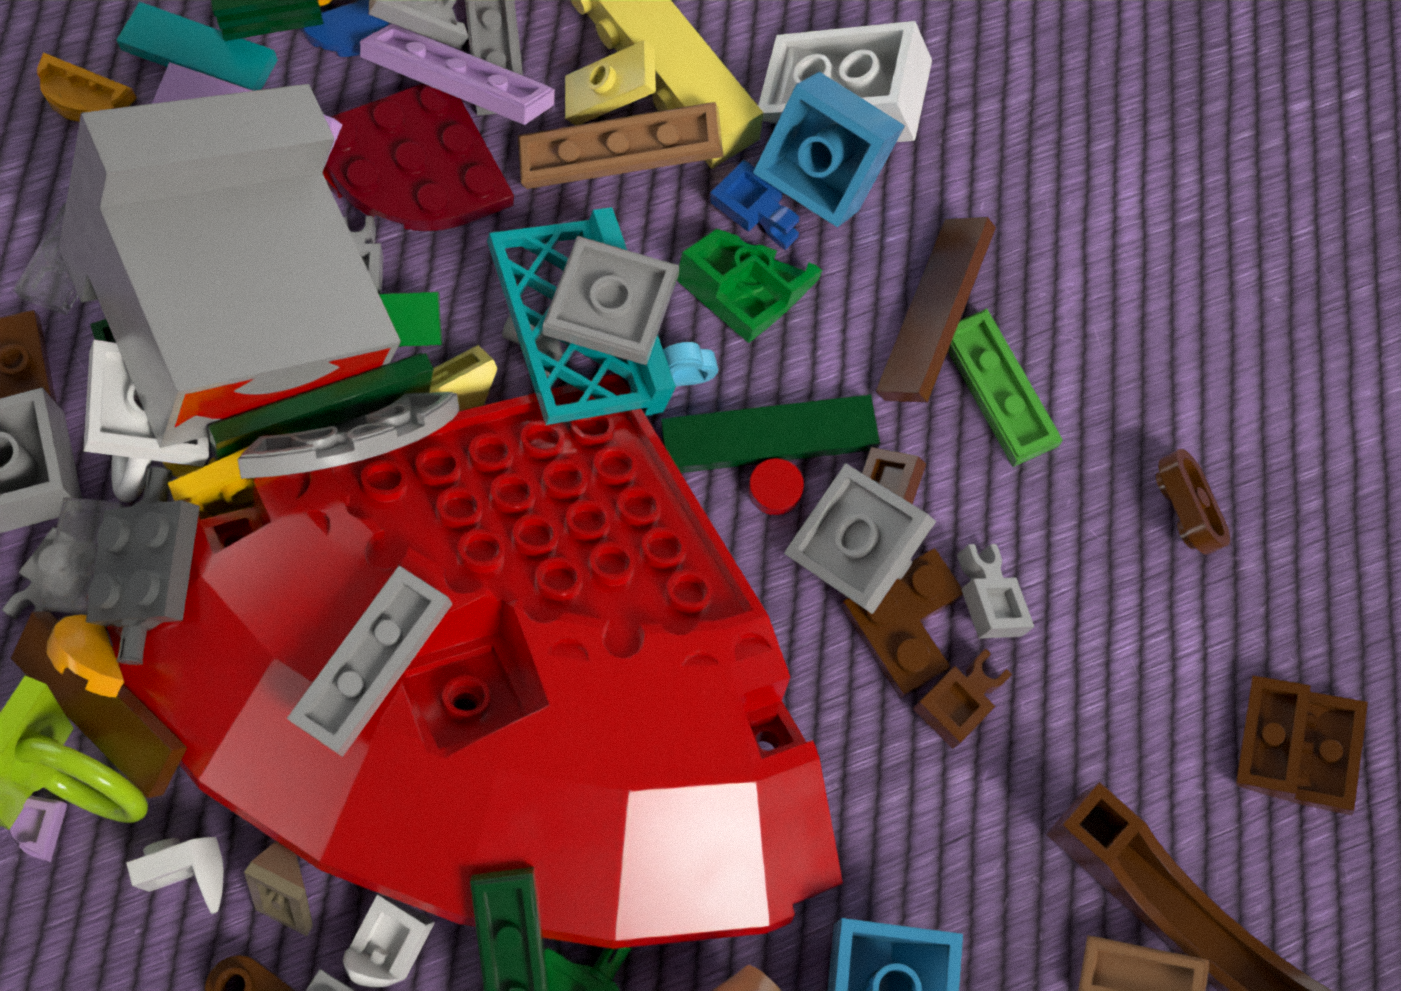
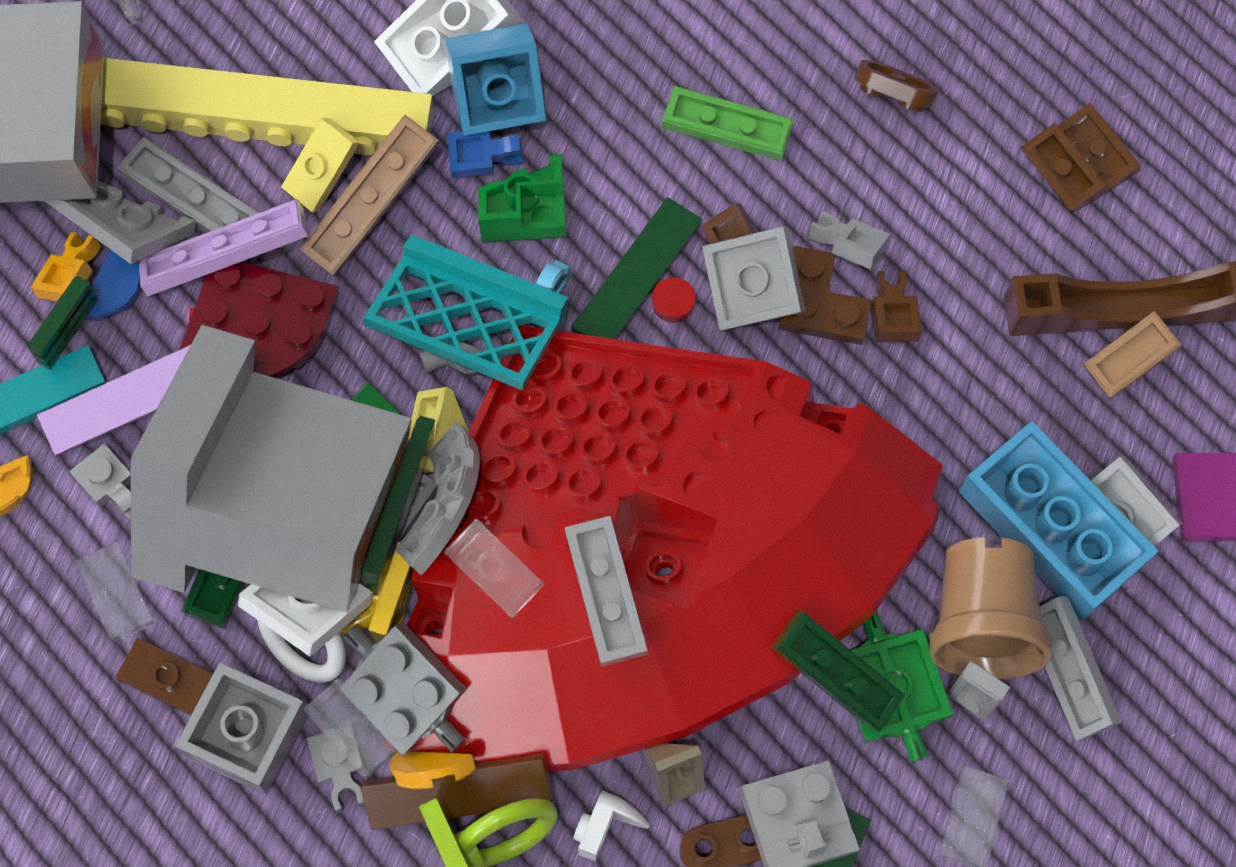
camera: 45 degrees left, 0 degrees up
(313, 540) = (494, 568): none -> clear plate
(386, 943) = (754, 742): white plate -> none
(611, 300) = (479, 284): light grey tile -> none
(936, 310) = (648, 113): reddish brown tile -> none

